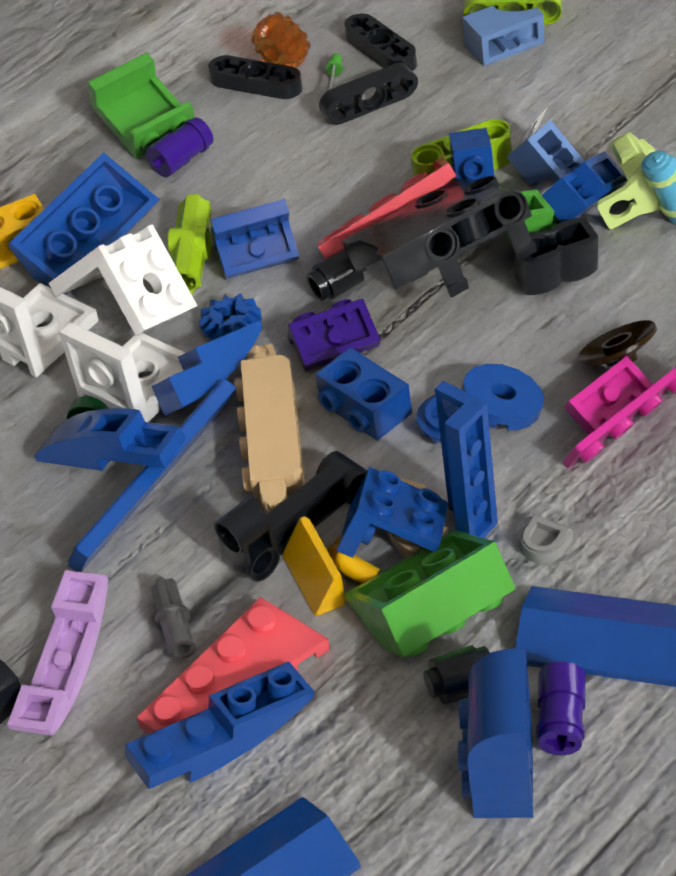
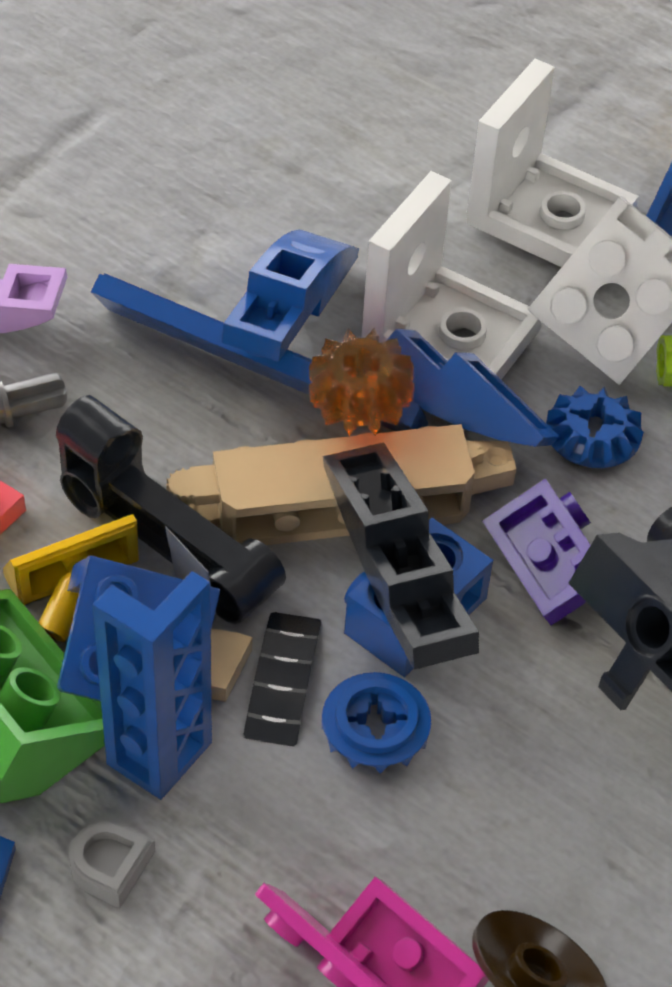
camera: 75 degrees right, 5 degrees up
(213, 393) = (361, 381): none -> clear orange gear
(339, 496) = (183, 560): none -> light grey sticker
(342, 383) = (400, 555): none -> black slope
(407, 464) = (282, 679): none -> black sticker
(522, 394) = (441, 762): blue tile -> none

